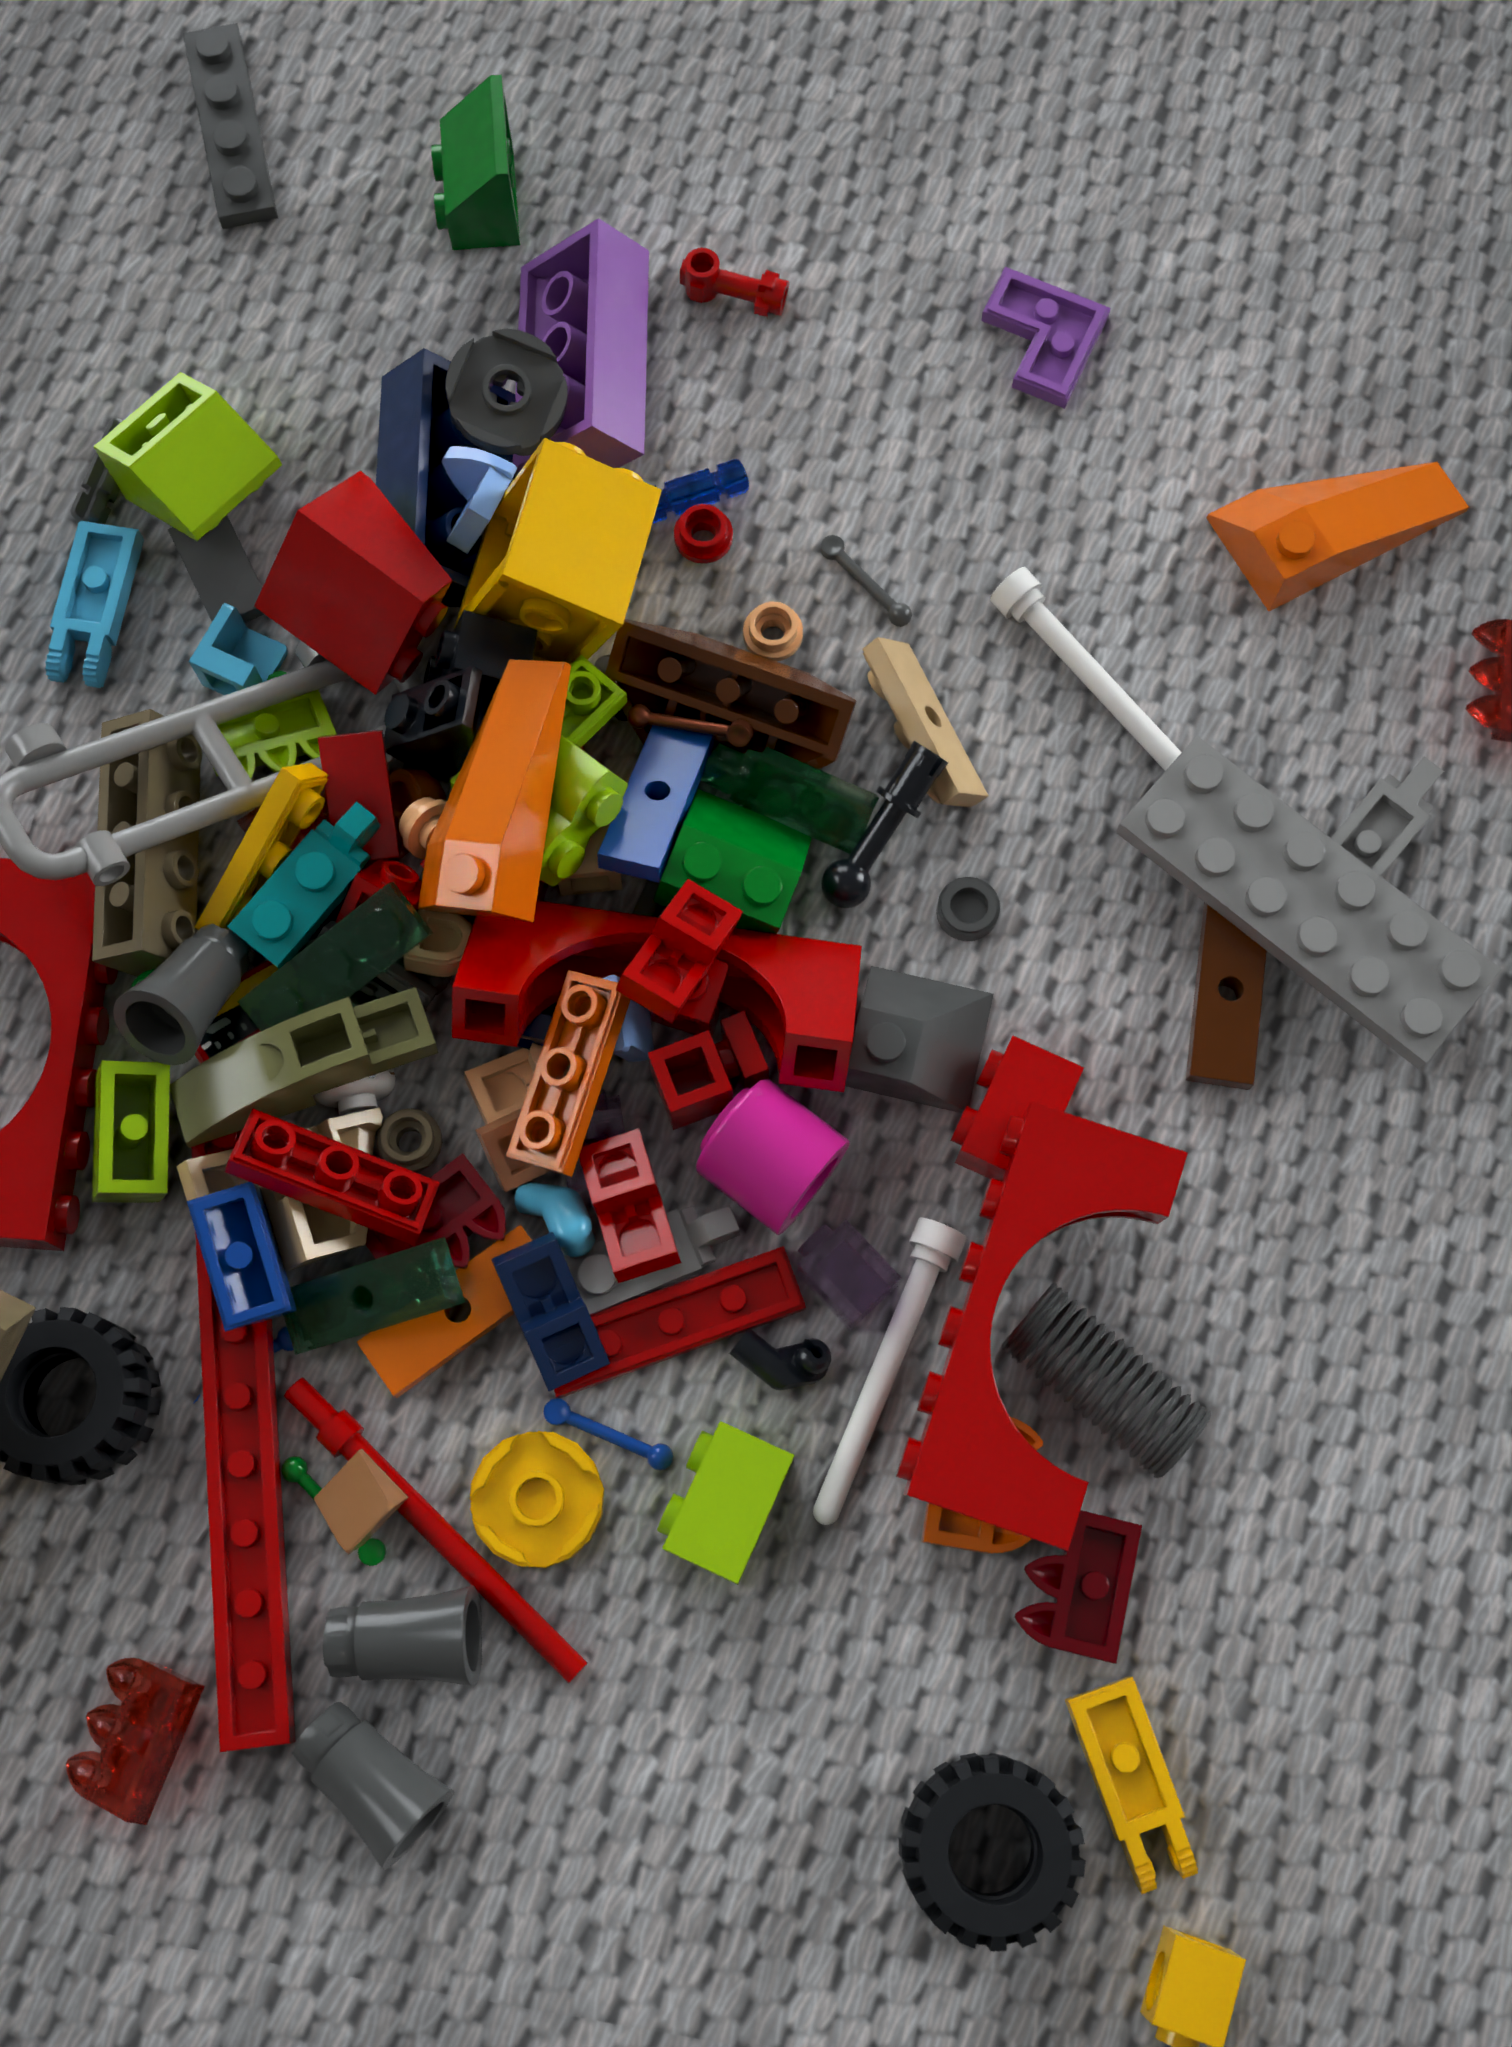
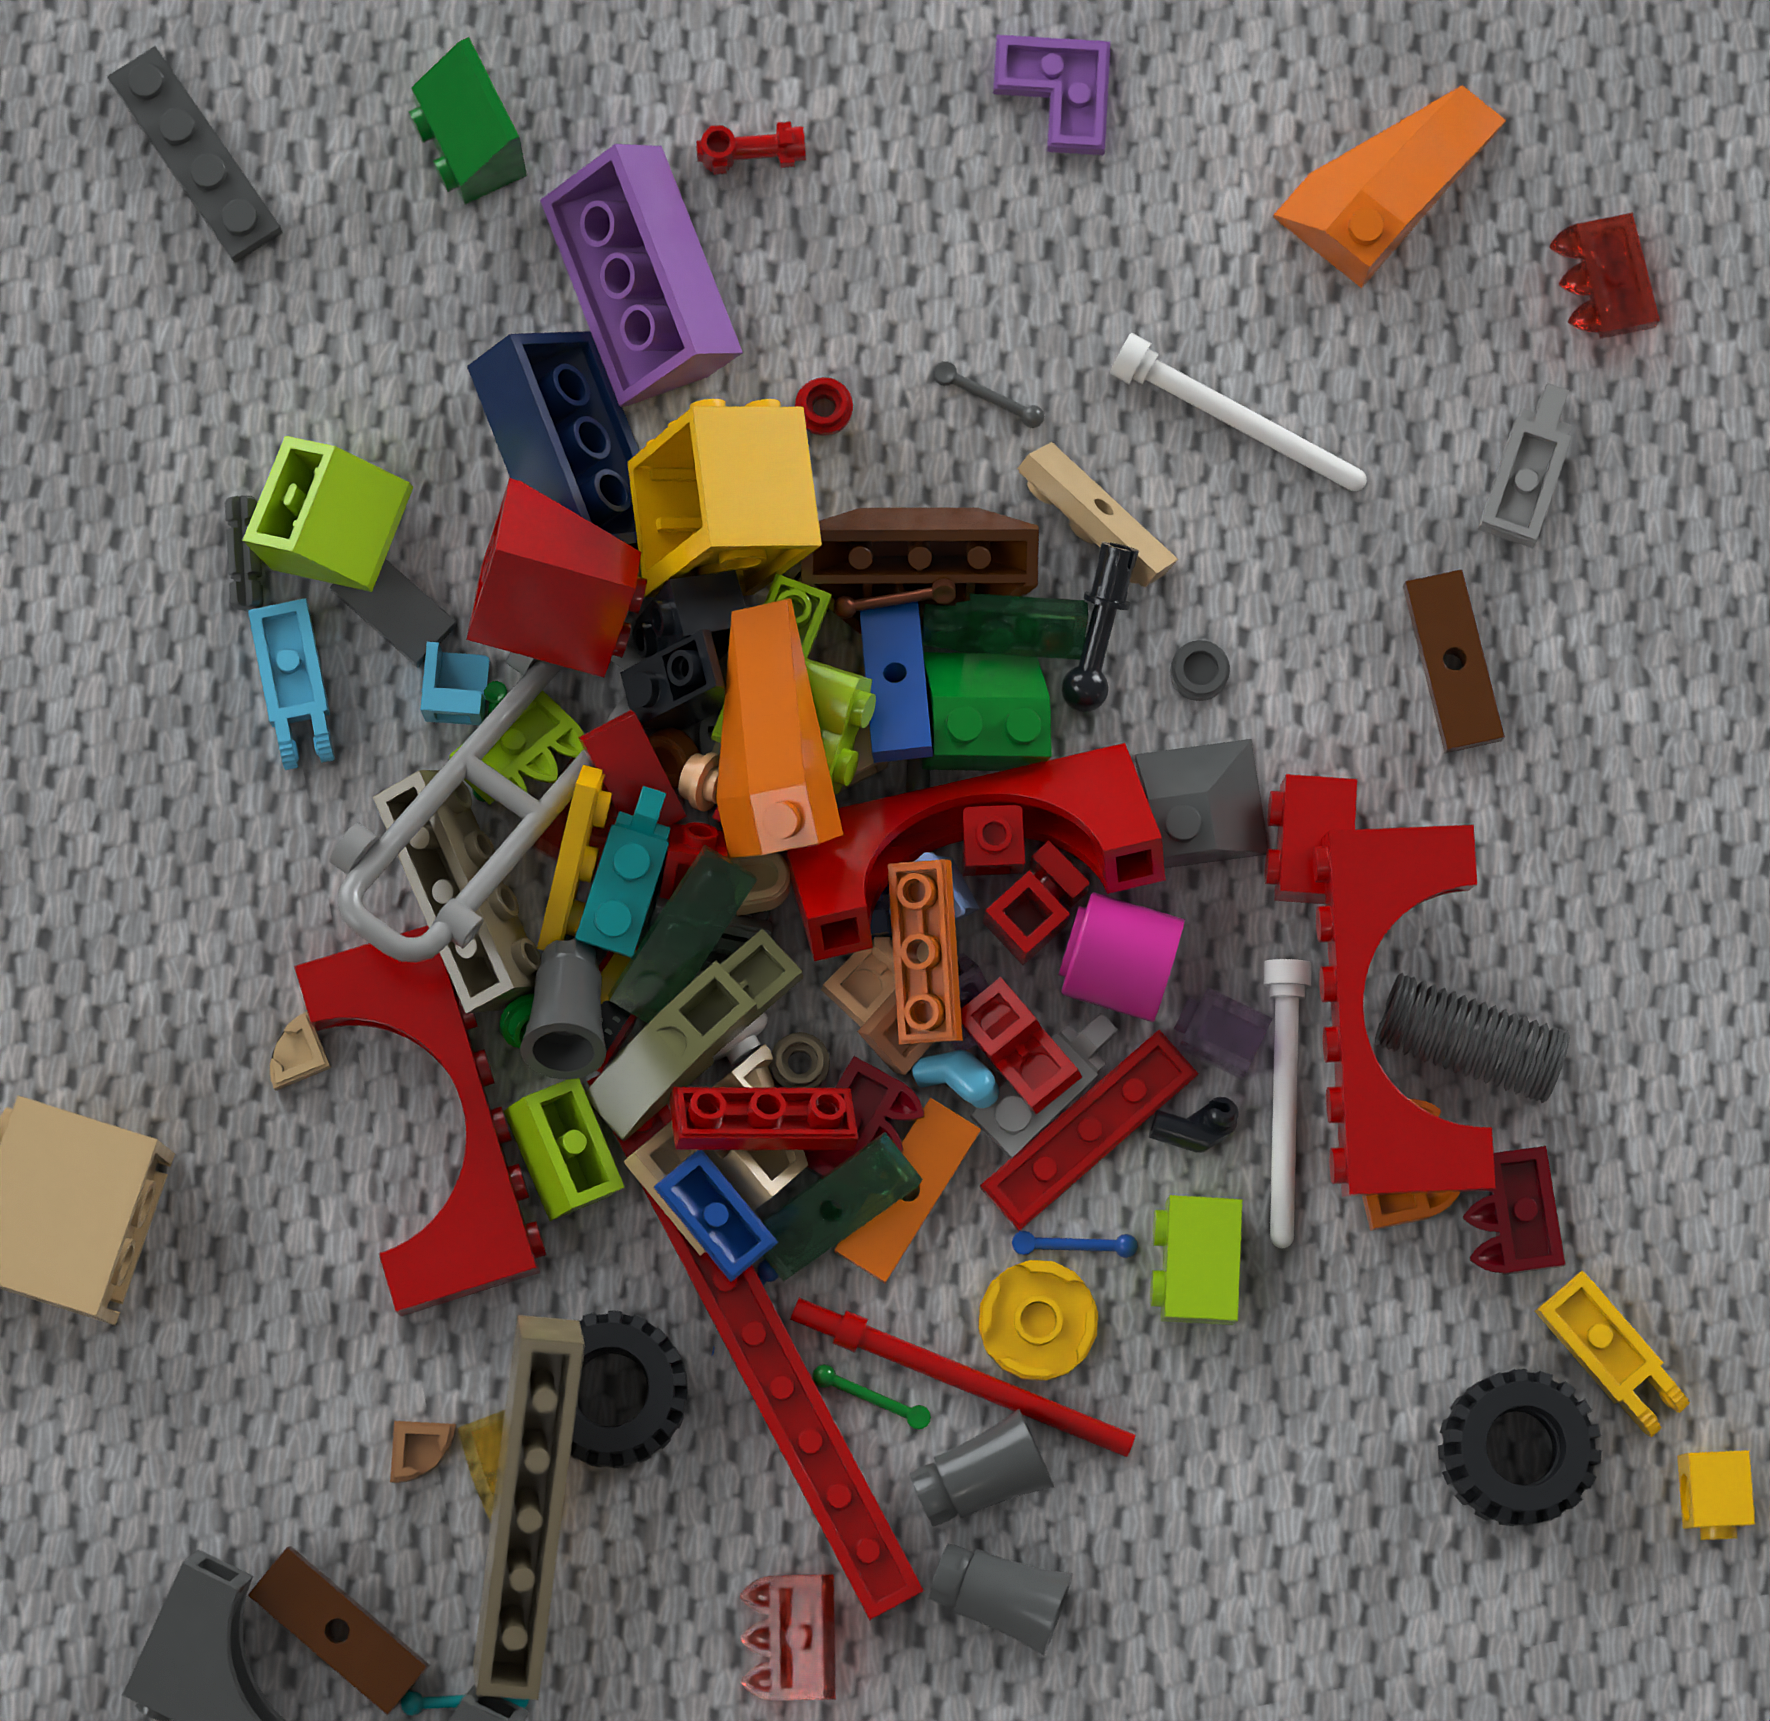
camera: 25 degrees left, 5 degrees up
(358, 1501) = (894, 1378): medium nougat slope -> none
(482, 481) = (623, 448): light blue tile -> none
(491, 362) = (627, 325): dark grey plate -> none
(550, 1311) = (989, 1160): dark blue slope -> none
(679, 951) = (979, 811): red slope -> none
(702, 488) = (799, 365): clear blue axle -> none
(773, 615) = (931, 460): light nougat plate -> none
(1308, 902) = (1492, 556): light grey plate -> none

